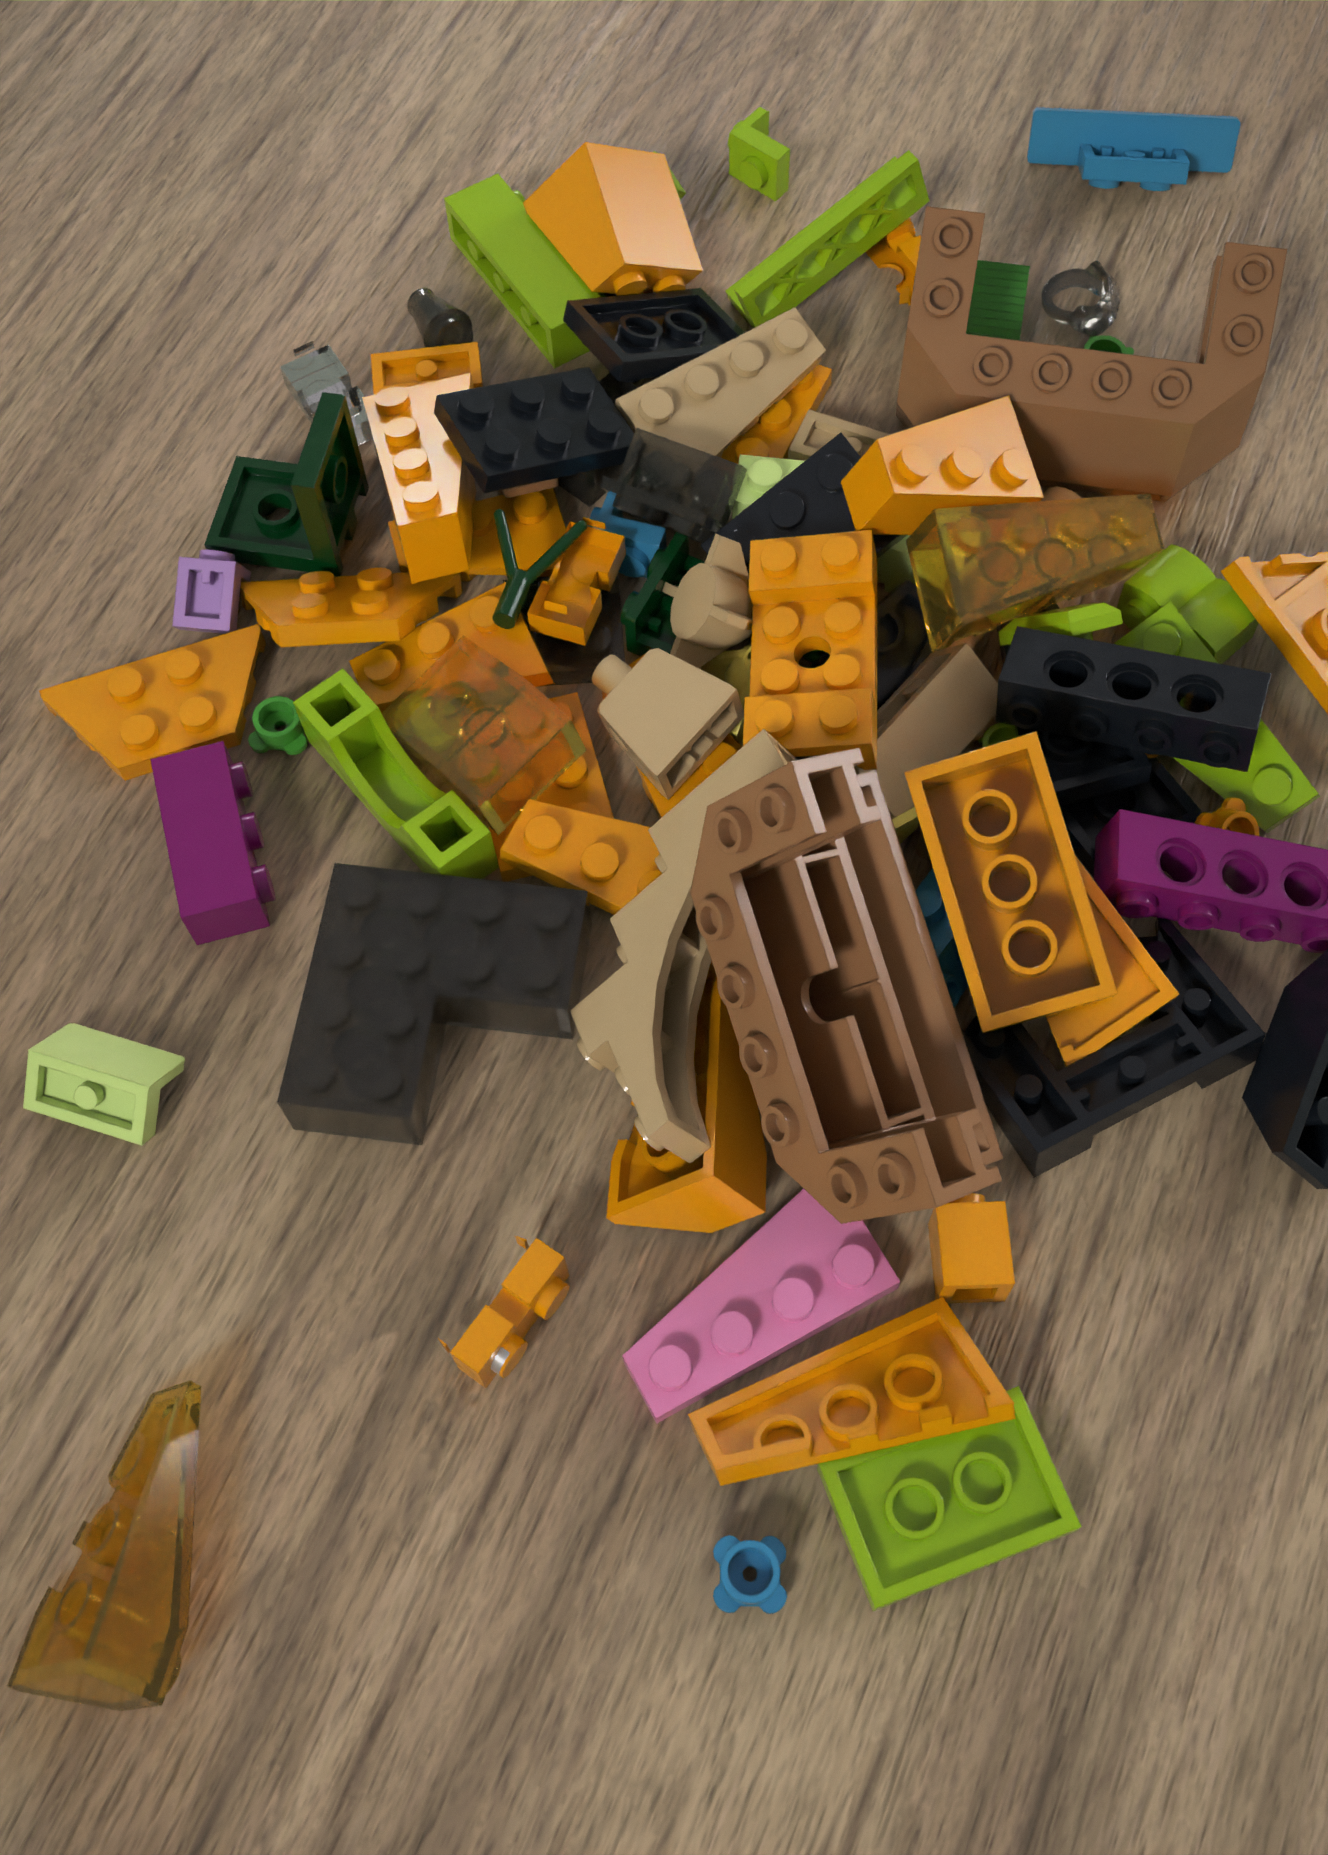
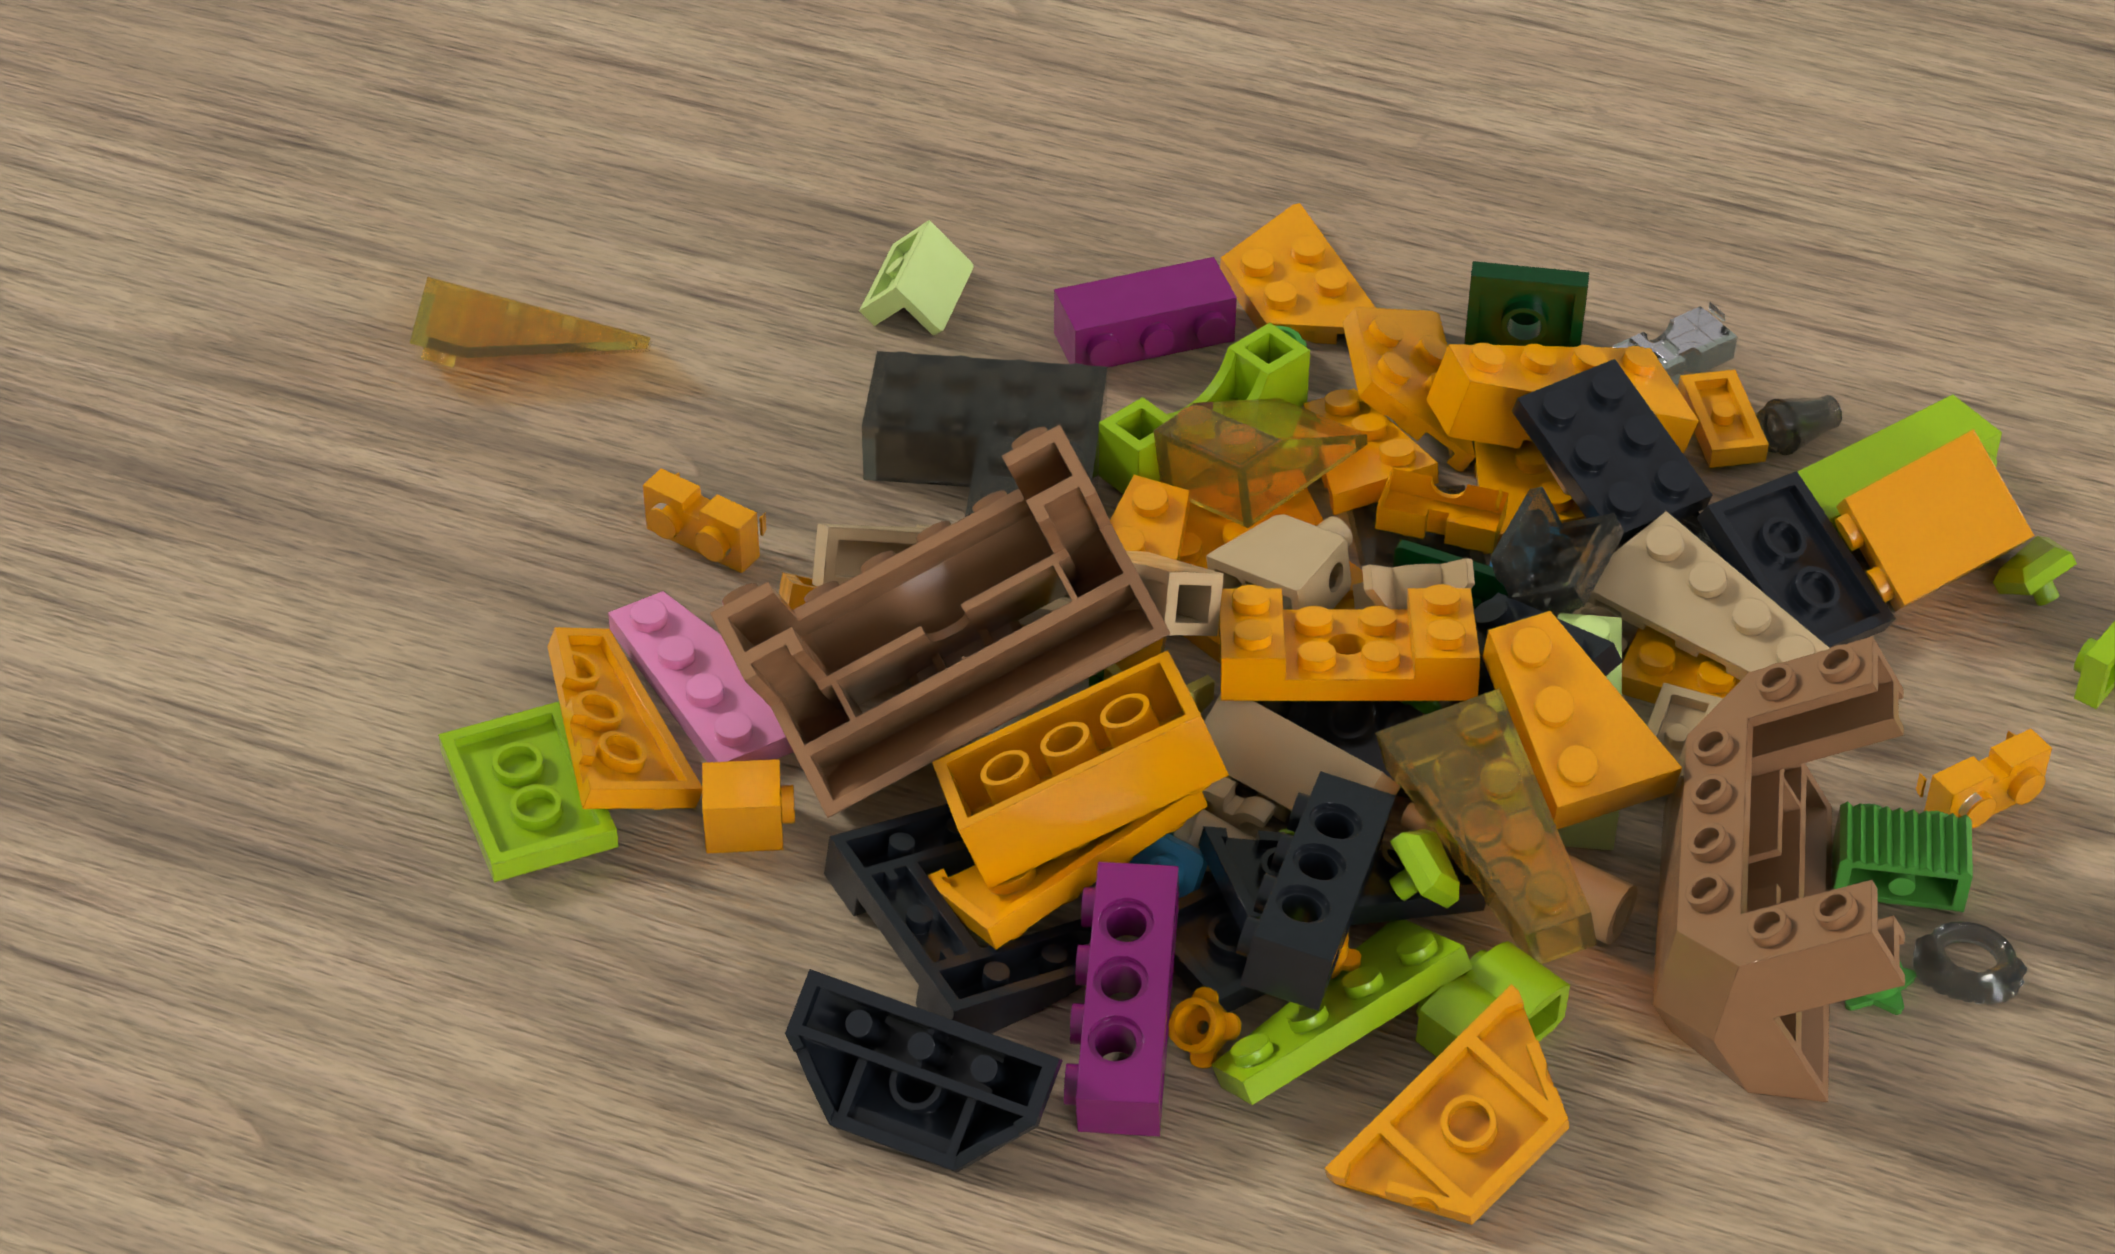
camera: 85 degrees right, 20 degrees down
(208, 592) = (1424, 286): lavender bracket -> none
(518, 580) = (1428, 462): dark green plant -> none
(734, 1589) = (477, 673): dark azure plate -> none
(831, 241) = (1971, 698): lime fence -> none

